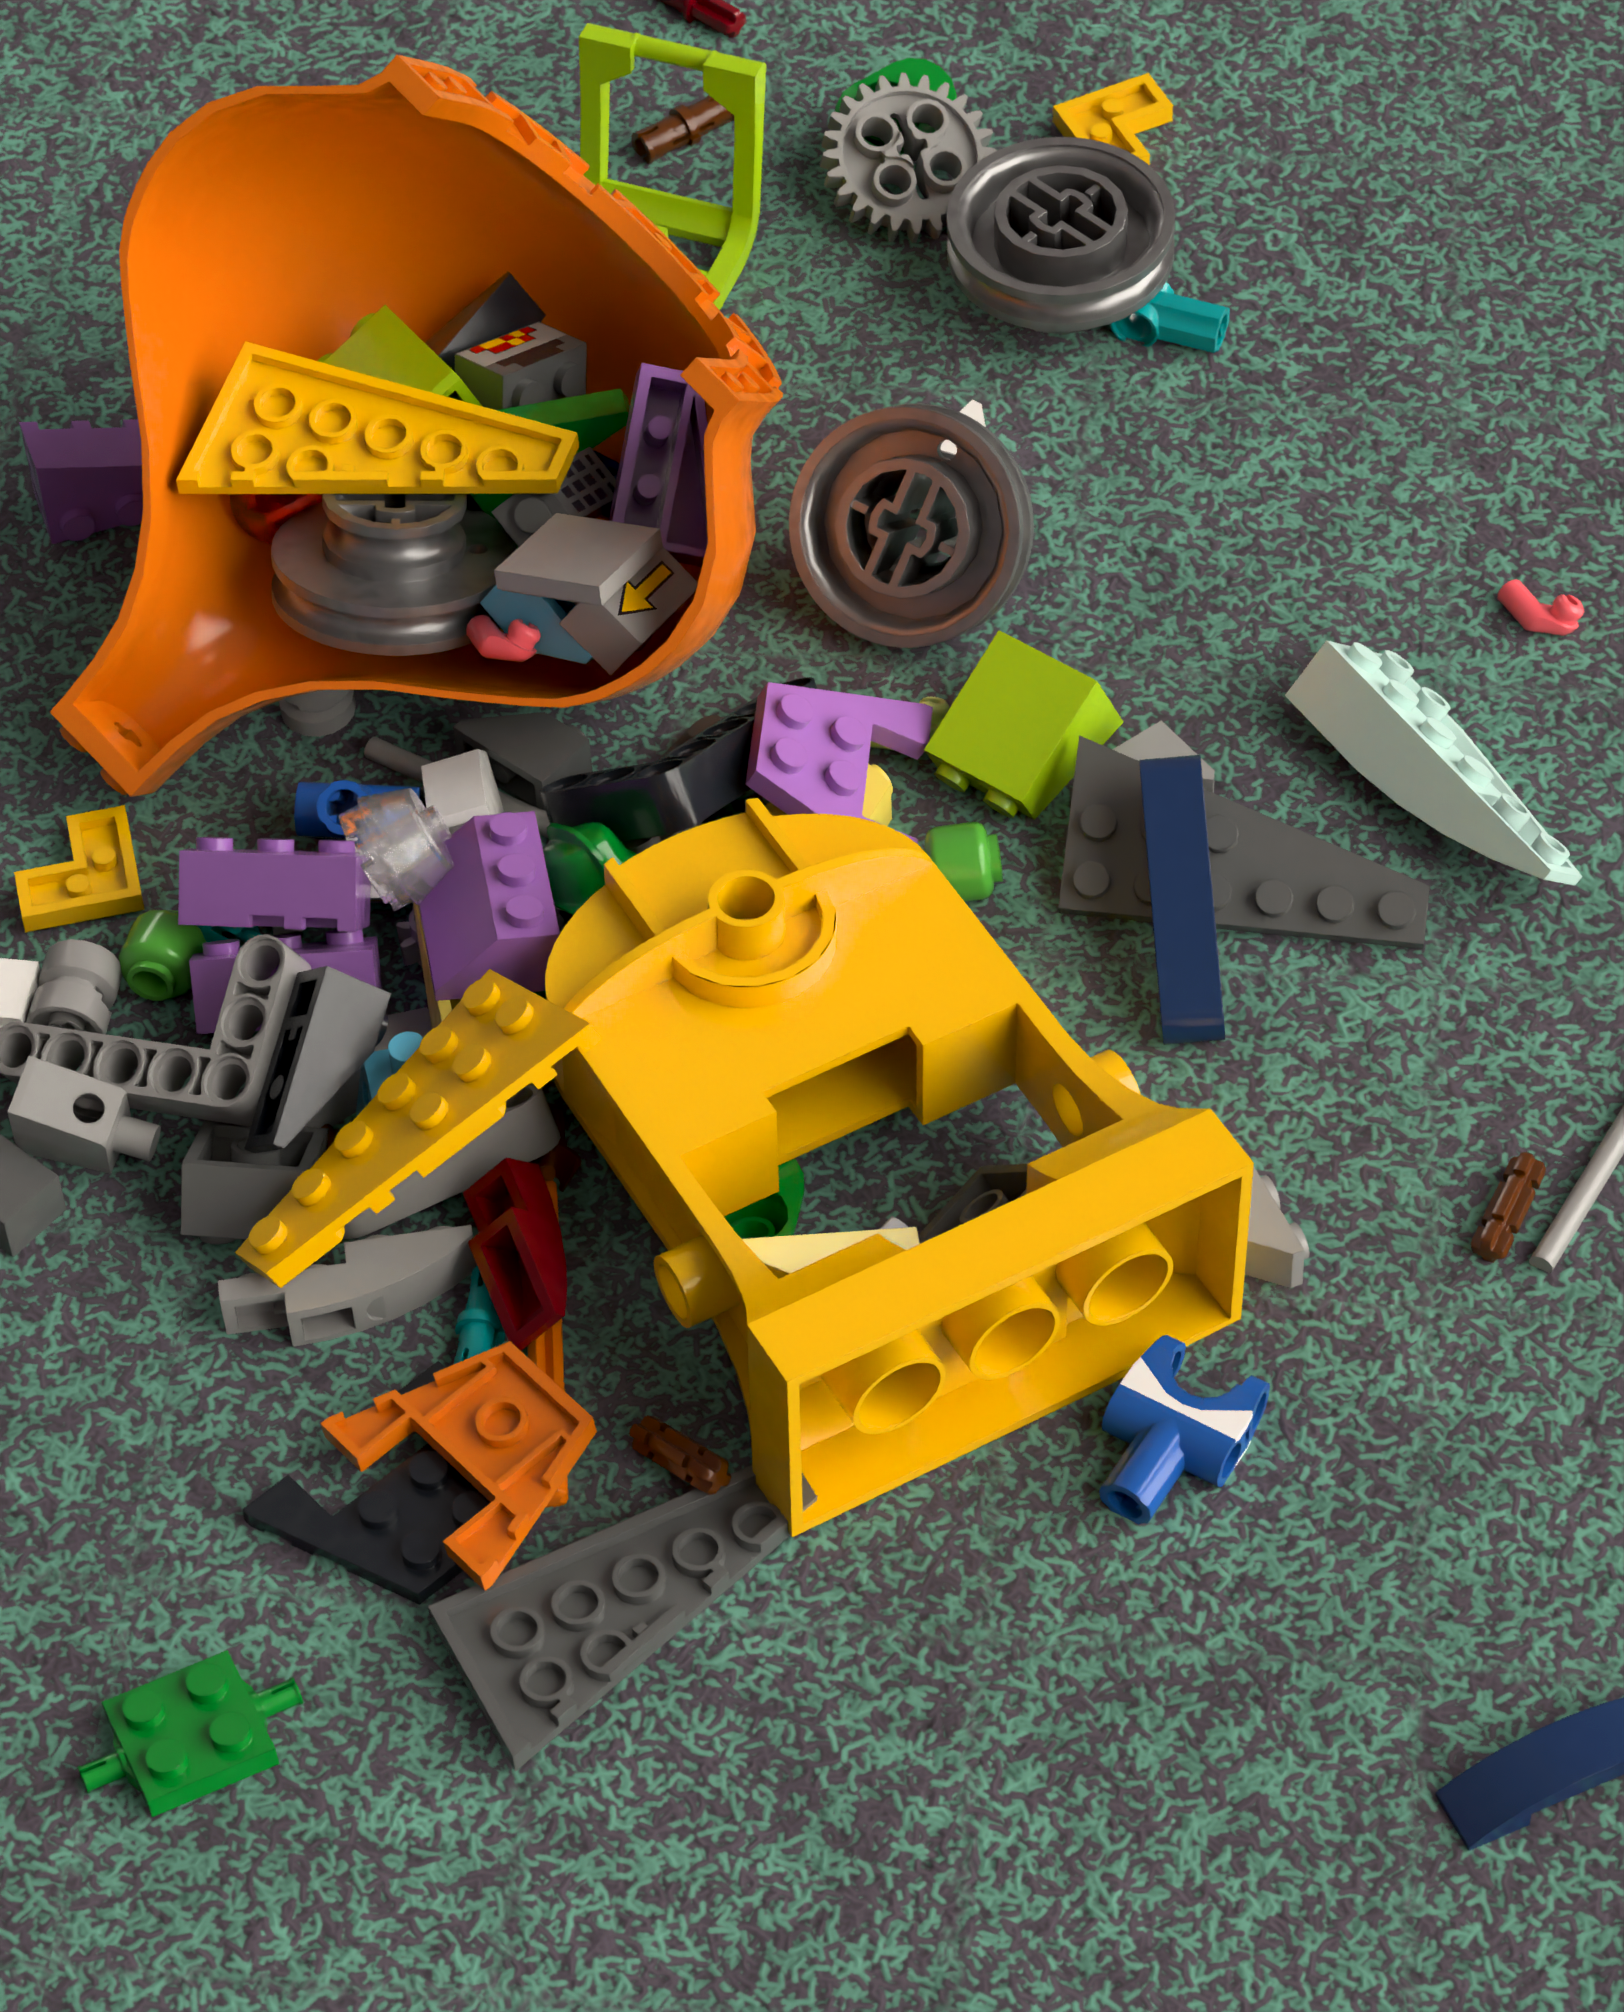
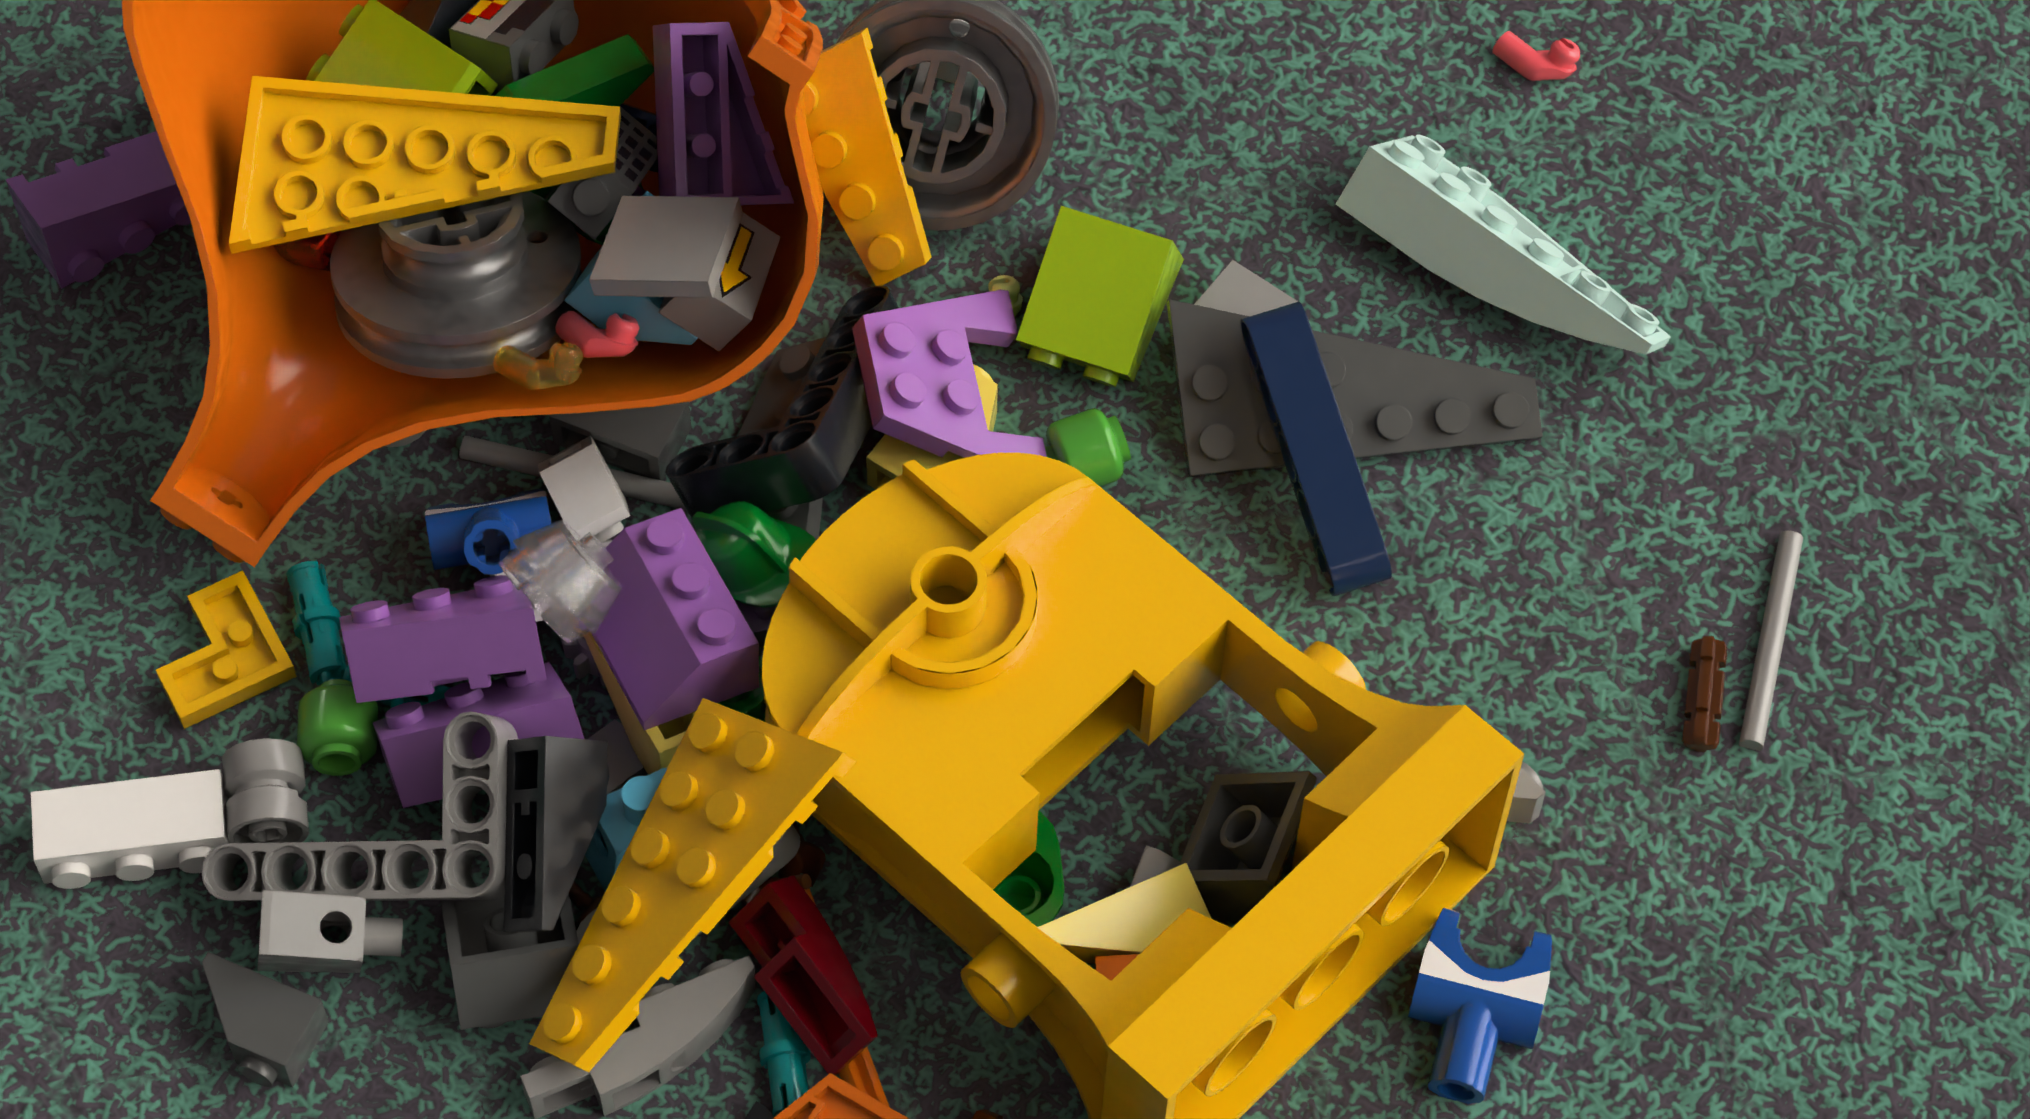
camera: 20 degrees left, 10 degrees up
(180, 834) = (316, 621): none -> teal pin
(431, 658) = (535, 374): none -> clear yellow arm
(809, 526) = (862, 161): none -> yellow wing

